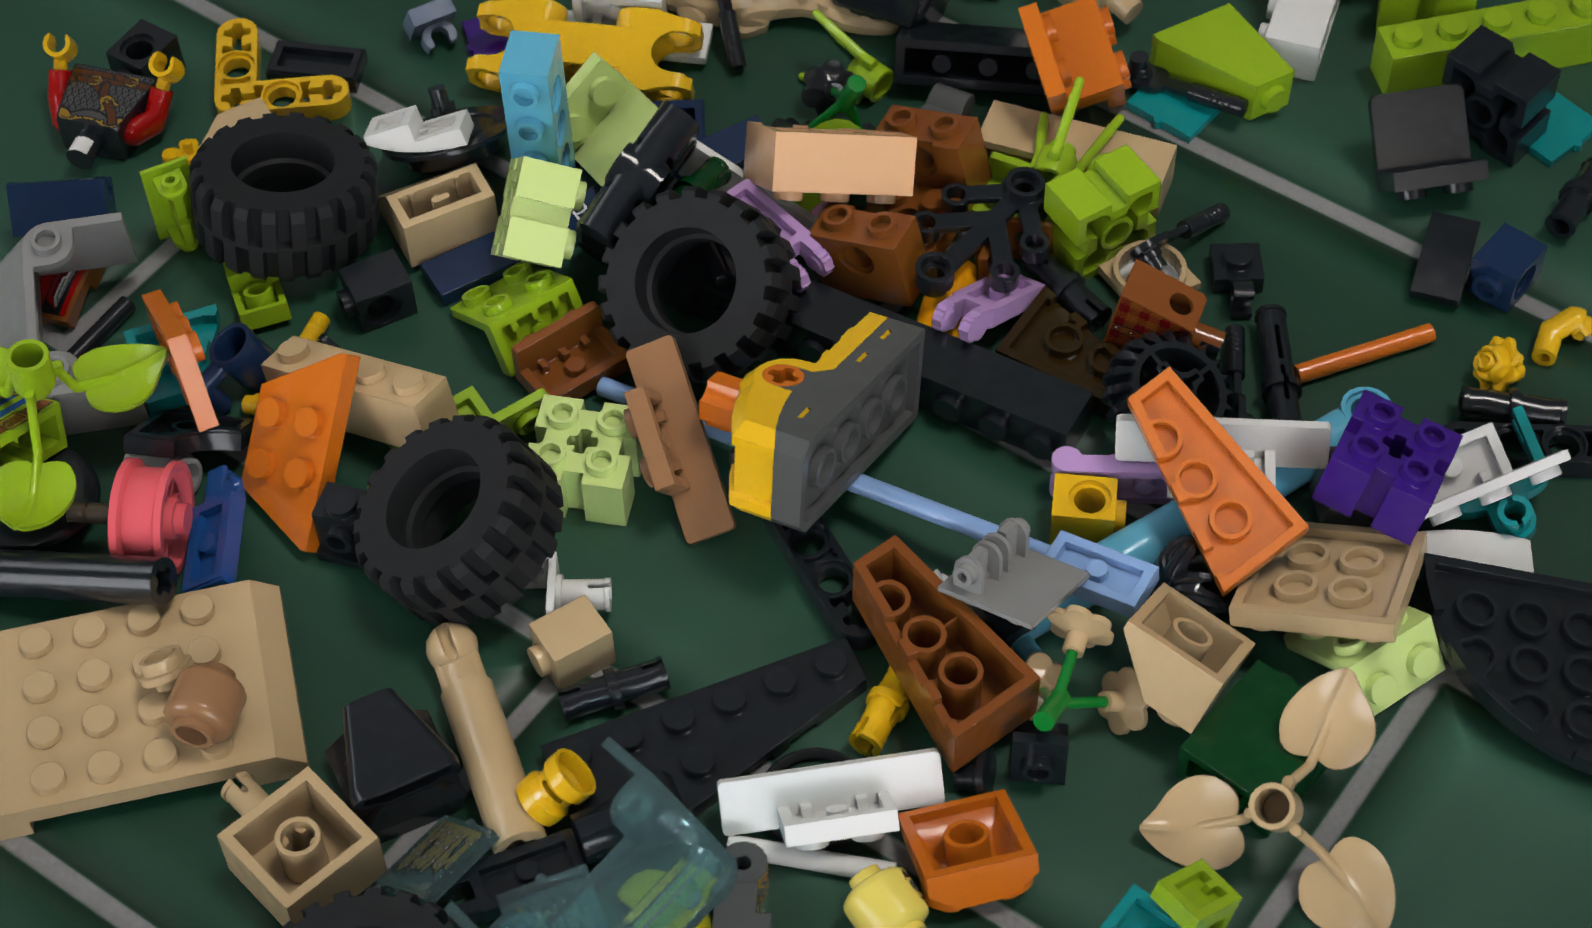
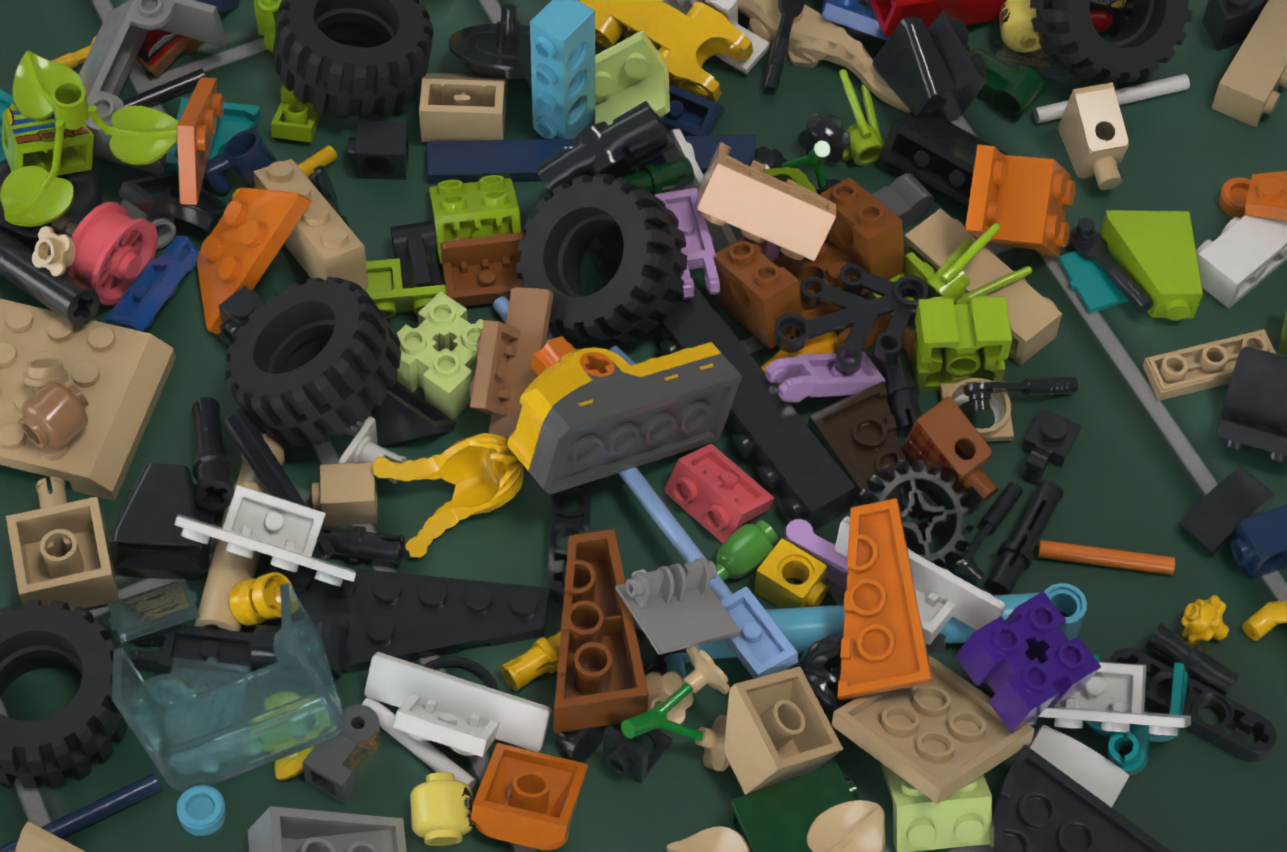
camera: 25 degrees right, 5 degrees up
(109, 530) = (53, 251): none -> tan plate
(407, 132) = (470, 34): white slope -> none
(410, 678) = (211, 464): none -> black pin
(485, 368) = (418, 253): none -> black piece
(499, 664) = (269, 469): none -> black axle
(529, 703) = (270, 527): none -> white bracket
(538, 212) = (518, 144): yellowish green brick -> none
(587, 541) = (407, 417): none -> black slope
(706, 555) = (484, 478): none -> yellow hair
(952, 467) = (716, 491): none -> coral bracket
(1021, 497) = (745, 550): none -> bright green plant
(1328, 141) = (1200, 365): none -> tan tile

